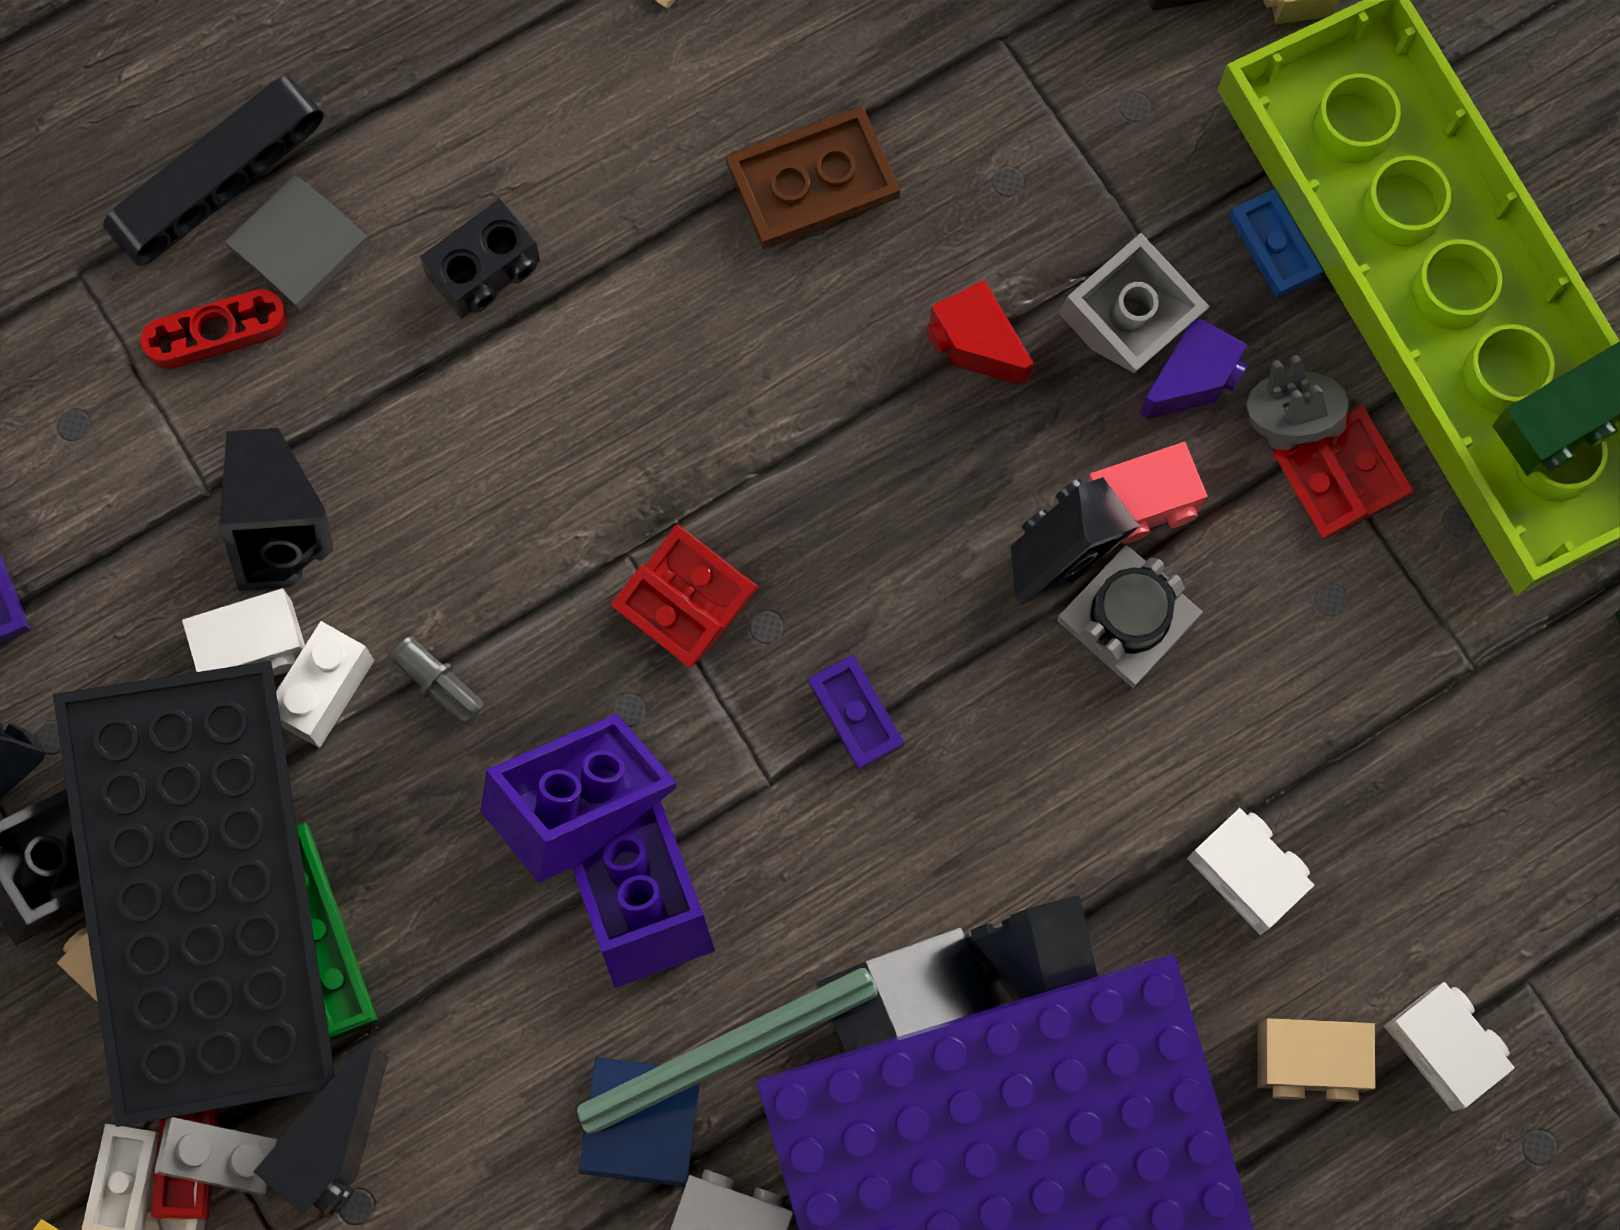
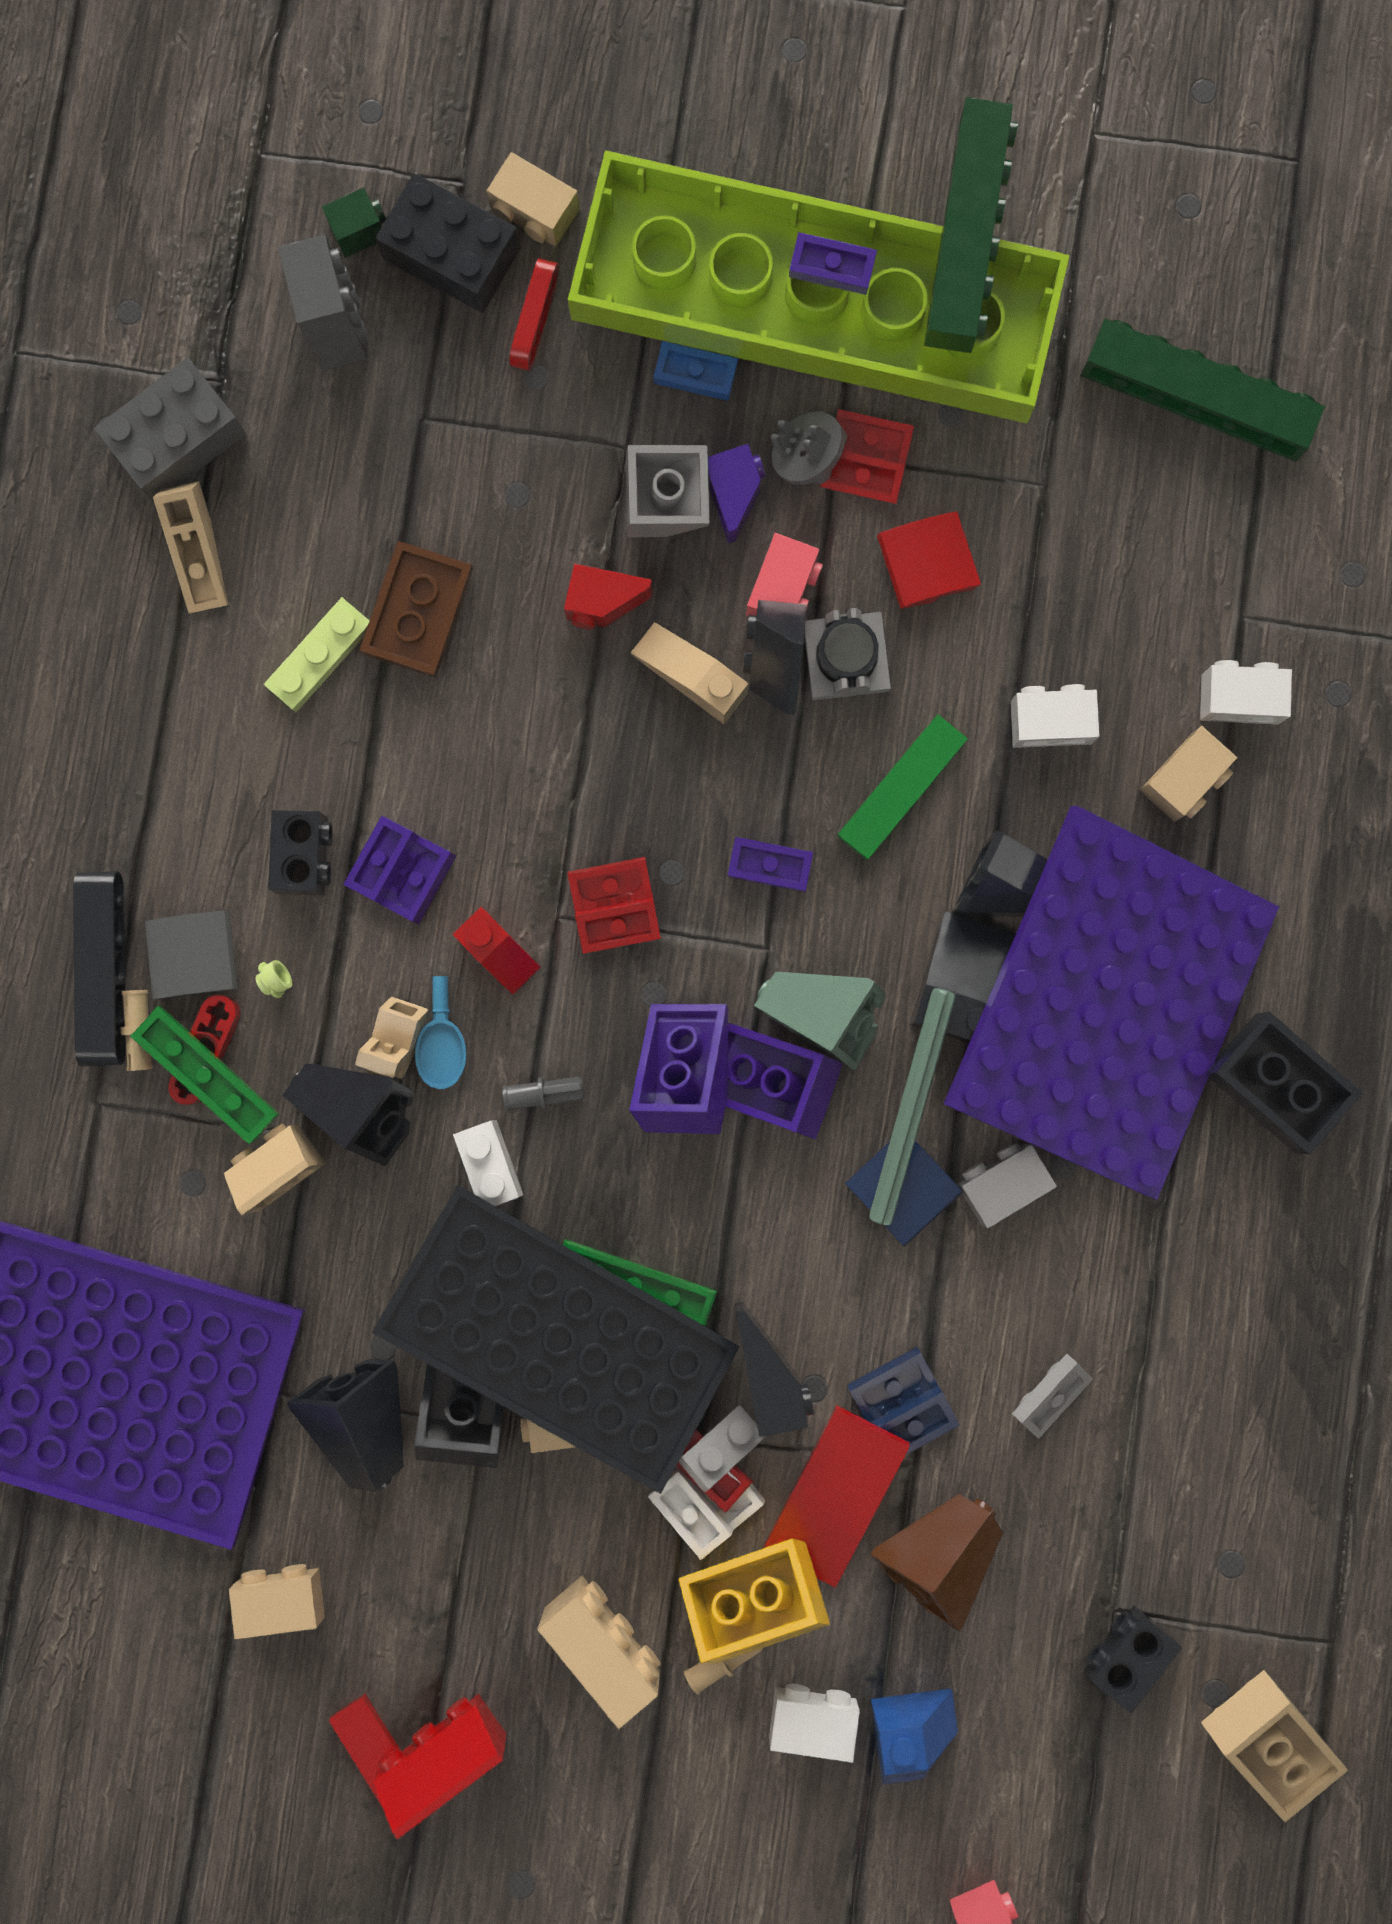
camera: 40 degrees left, 10 degrees up
(146, 483) = (272, 1169): none -> tan slope
(182, 251) = (135, 1012): none -> tan pin
(187, 345) = (204, 1075): none -> green plate
(247, 634) = (422, 1186): white brick -> none
(338, 335) = (273, 978): none -> yellowish green plate
(371, 493) = (393, 1039): none -> tan brick
(405, 542) = (440, 1045): none -> dark azure piece
(542, 518) = (496, 950): none -> red slope
(545, 367) = (400, 870): none -> dark purple slope
(688, 125) = (318, 655): none -> yellowish green plate
(754, 889) = (825, 1011): none -> sand green slope
(980, 481) = (691, 672): none -> tan slope
(1048, 779) = (902, 787): none -> green tile
(1191, 54) = (534, 314): none -> red beam
(1296, 615) = (928, 559): none -> red slope
(1487, 272) = (832, 263): none -> dark purple plate

